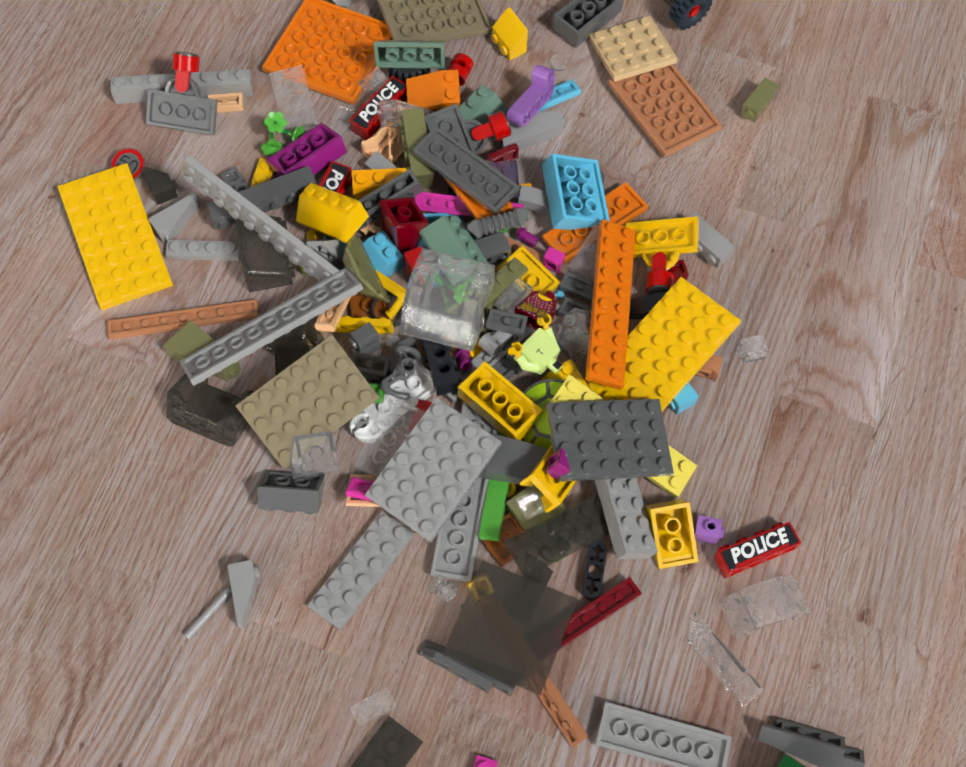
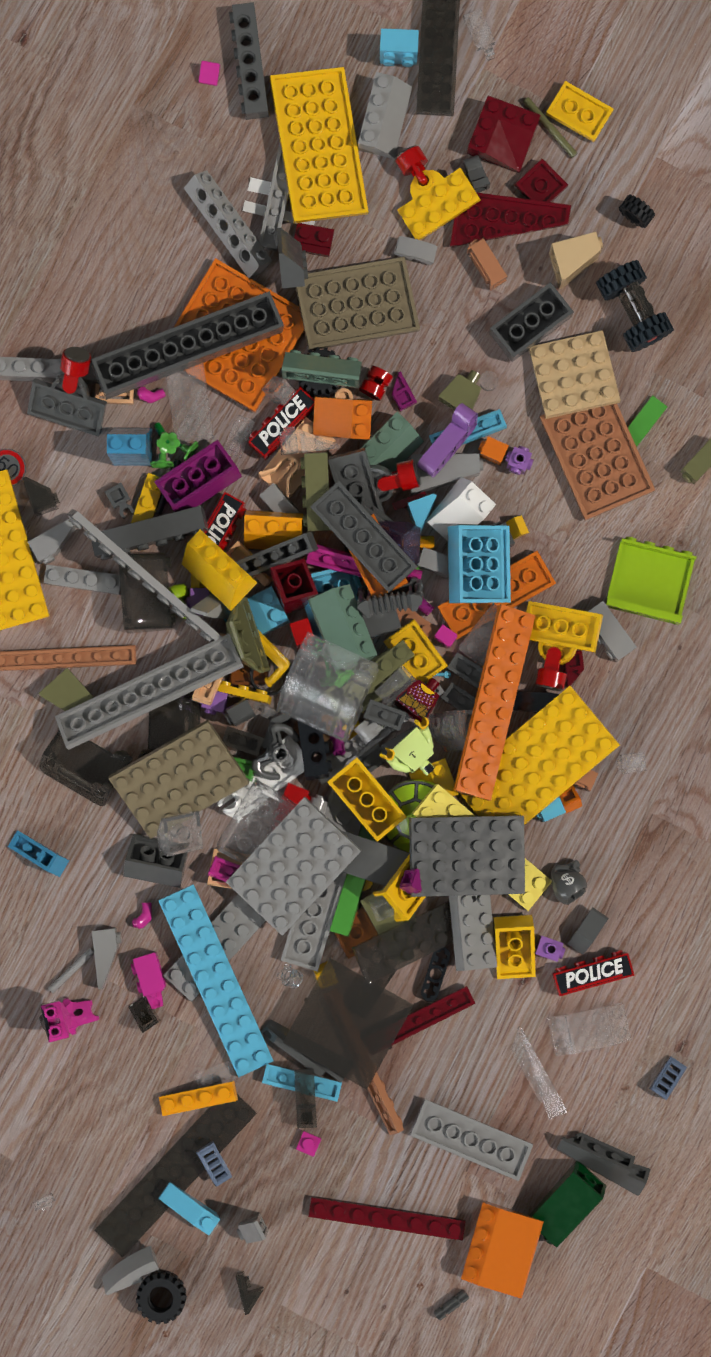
camera: 10 degrees right, 20 degrees up
(169, 497) = (38, 853): none -> dark azure slope
(197, 660) = (59, 1018): none -> dark pink hips
(240, 129) = (130, 446): none -> dark azure slope
(258, 101) = (149, 396): none -> dark pink arm
(283, 549) = (146, 916): none -> dark pink arm
(285, 47) = (187, 345): none -> dark grey brick
(290, 649) = (144, 1014): none -> clear smoke slope
(294, 609) = (150, 978): none -> dark pink hinge
(342, 336) = (218, 705): none -> medium lavender brick
(356, 731) = (198, 1098): none -> light orange plate
(365, 603) = (215, 980): none -> medium azure plate
(468, 701) = (285, 1079): none -> medium azure plate
(475, 715) = (305, 1098): none -> clear smoke slope
(483, 77) = (402, 393): none -> magenta tile
(510, 35) = (437, 344): yellow slope -> none
(515, 151) = (420, 510): none -> medium azure slope
(524, 73) = (461, 391): none -> olive torso
(553, 141) = (461, 506): none -> white slope
(572, 110) = (493, 450): none -> orange brick
(596, 114) = (519, 467): none -> medium lavender brick
(606, 168) = (517, 527): none -> yellow slope
(701, 388) = (570, 799): none -> orange slope
(702, 76) = (646, 419): none -> bright green tile
(714, 464) = (568, 882): none -> dark grey piece
(734, 196) = (650, 580): none -> lime panel
(743, 508) = (587, 931): none -> dark grey slope
(851, 662) = (662, 1073): none -> sand blue slope

